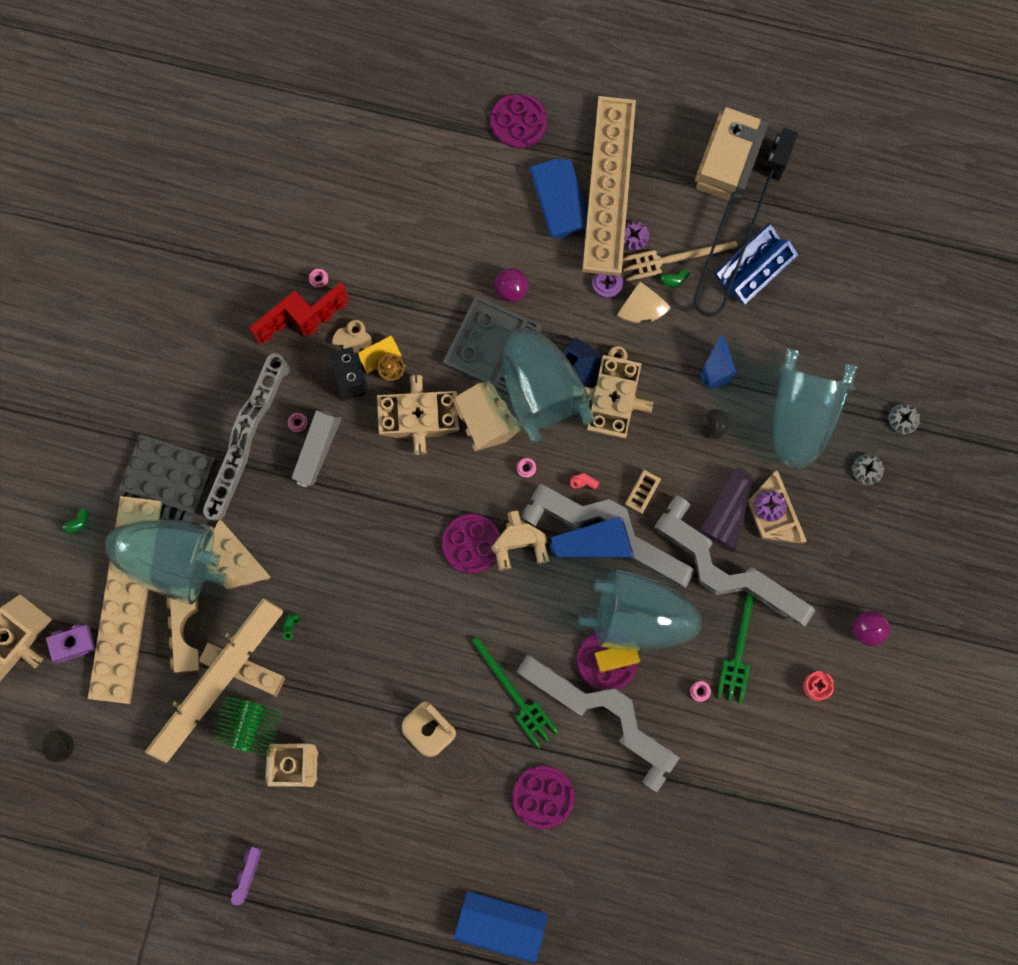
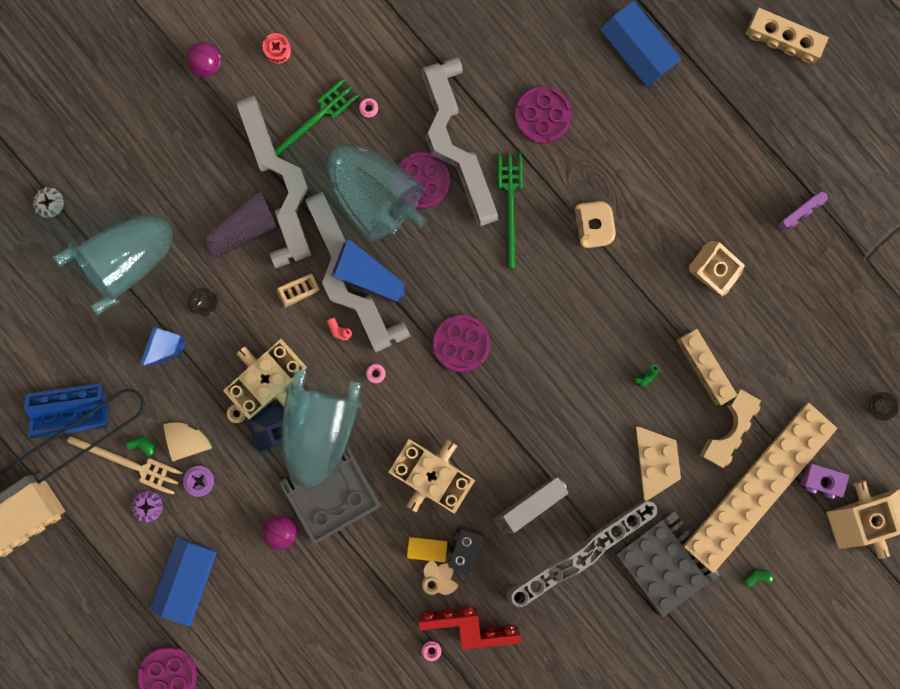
camera: 140 degrees left, 10 degrees up
(166, 556) = (715, 494): clear light blue windscreen -> none
(214, 680) = (734, 370): tan piece -> none
(247, 725) = (732, 318): green piece -> none
(297, 416) = (535, 542): bright pink plate -> none
(390, 367) = (426, 531): pearl gold wheel -> none
(485, 416) = (380, 435): tan wedge -> none
(516, 536) = (421, 322): tan connector -> none
(609, 186) = (134, 563): tan plate -> none
(615, 659) = (421, 174): yellow slope -> none
(765, 512) = (216, 203): medium lavender gear -> none
(785, 529) = (208, 201): tan wing -> none
(859, 470) = (116, 185): light grey gear -> none

